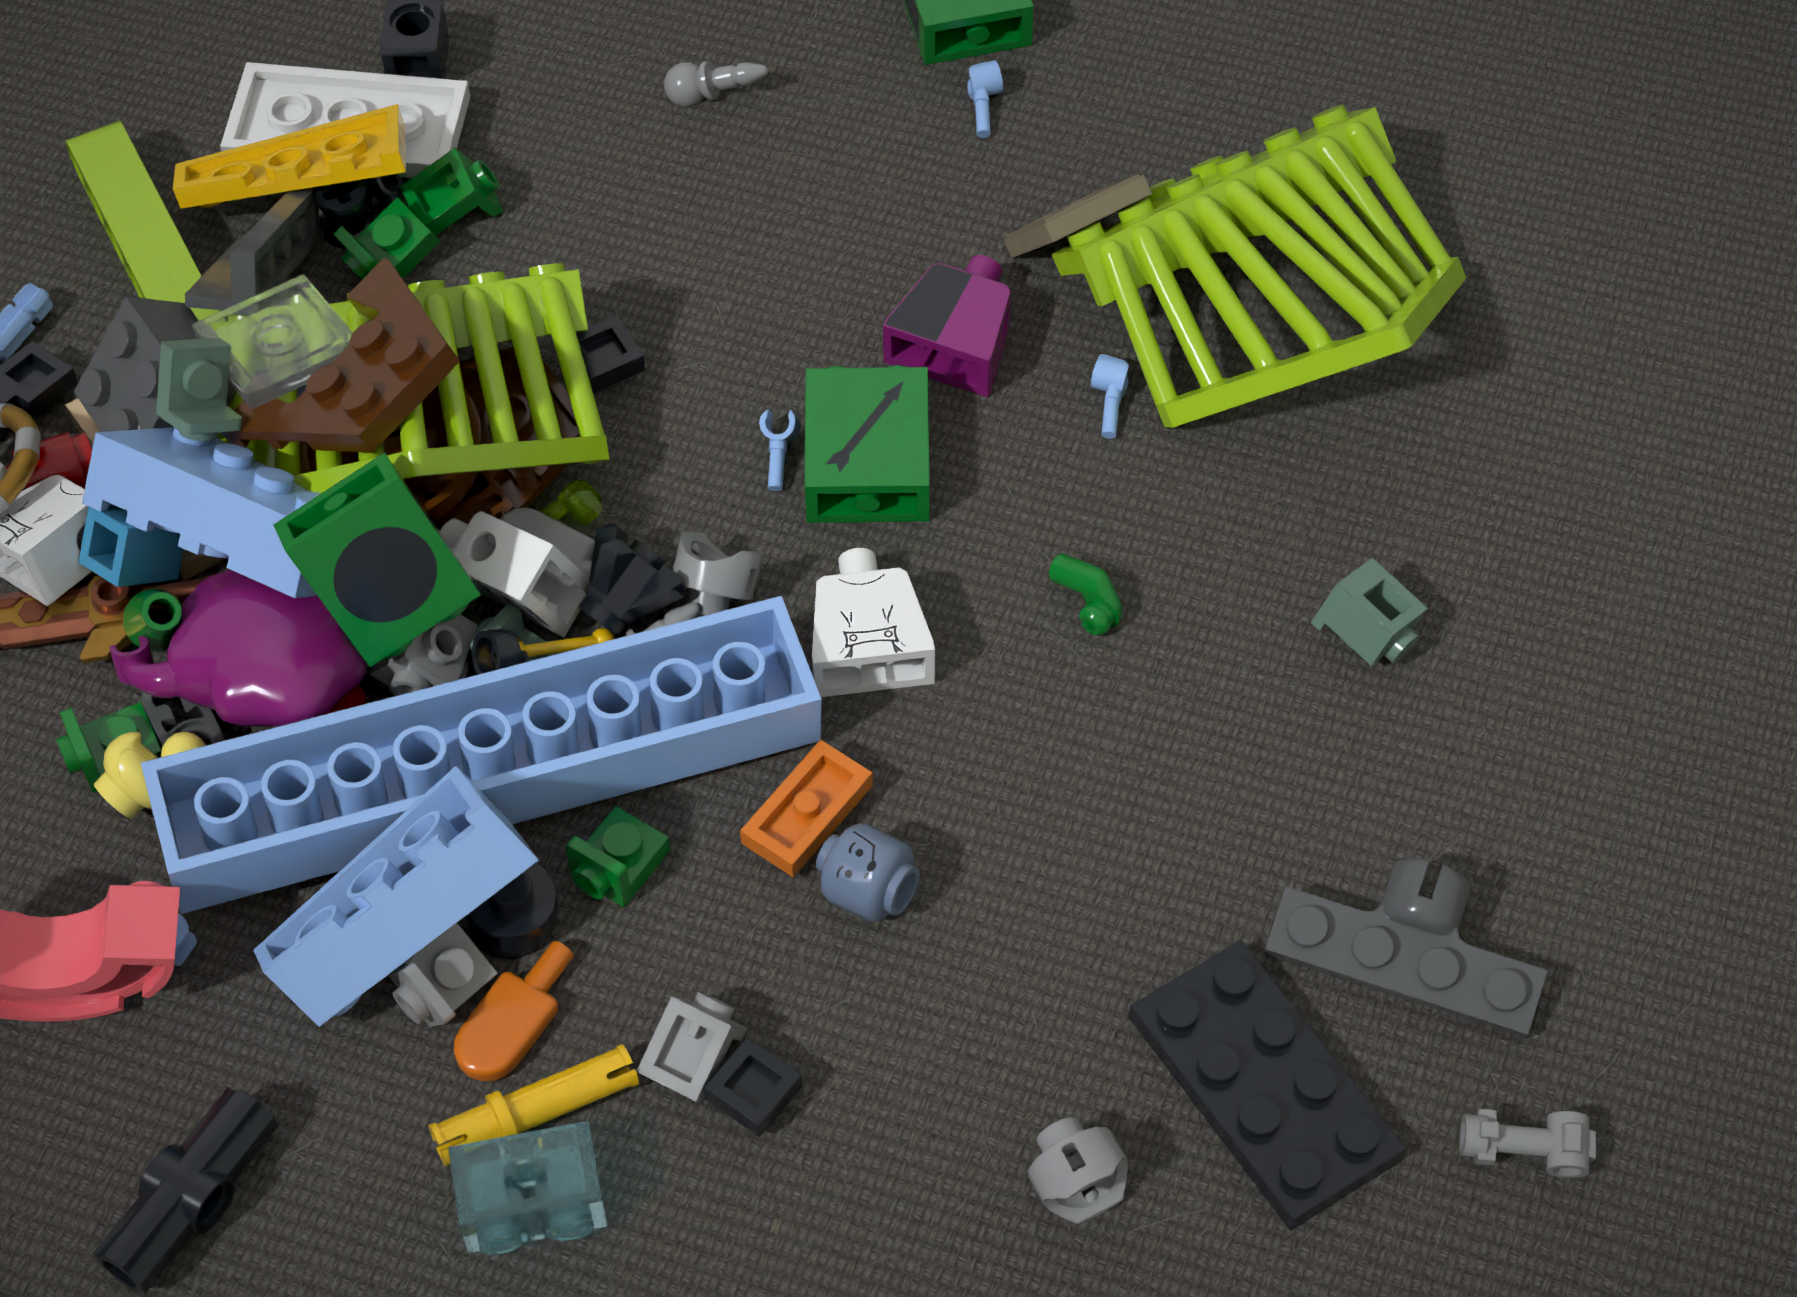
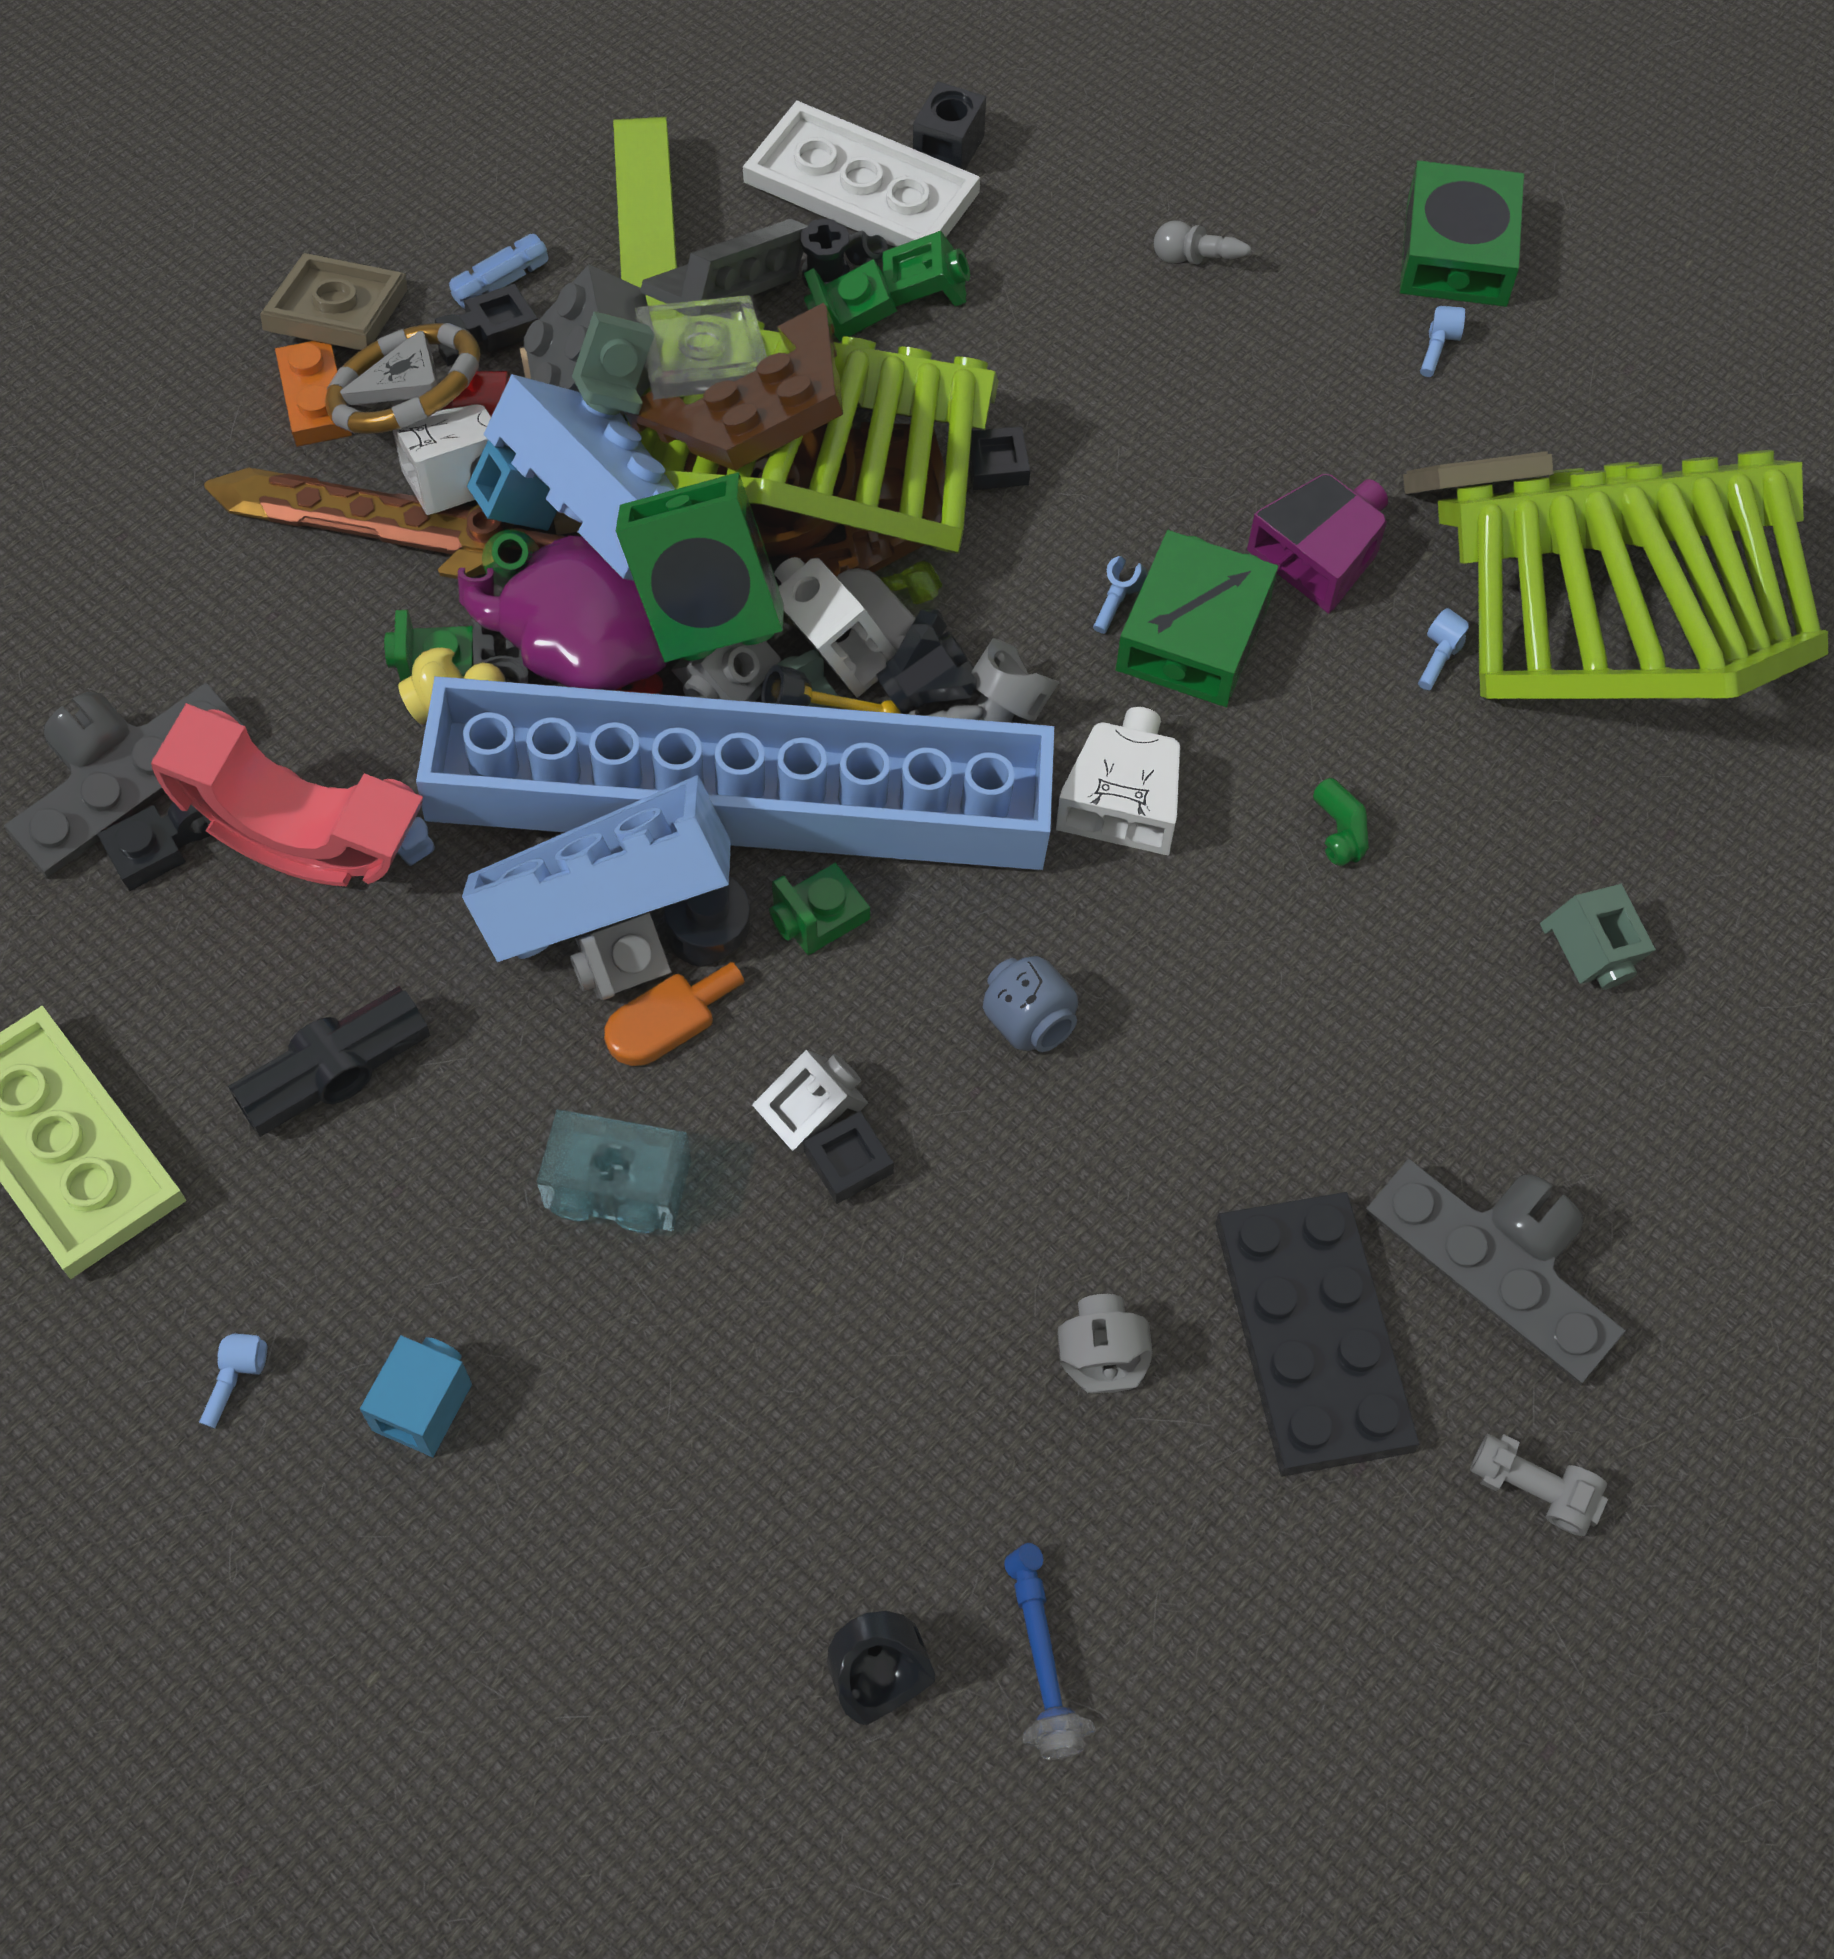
camera: 20 degrees right, 5 degrees up
(308, 158) = (816, 200): yellow wing -> none
(537, 1102) = (656, 1098): yellow pin -> none
(806, 808) = (1002, 925): orange plate -> none

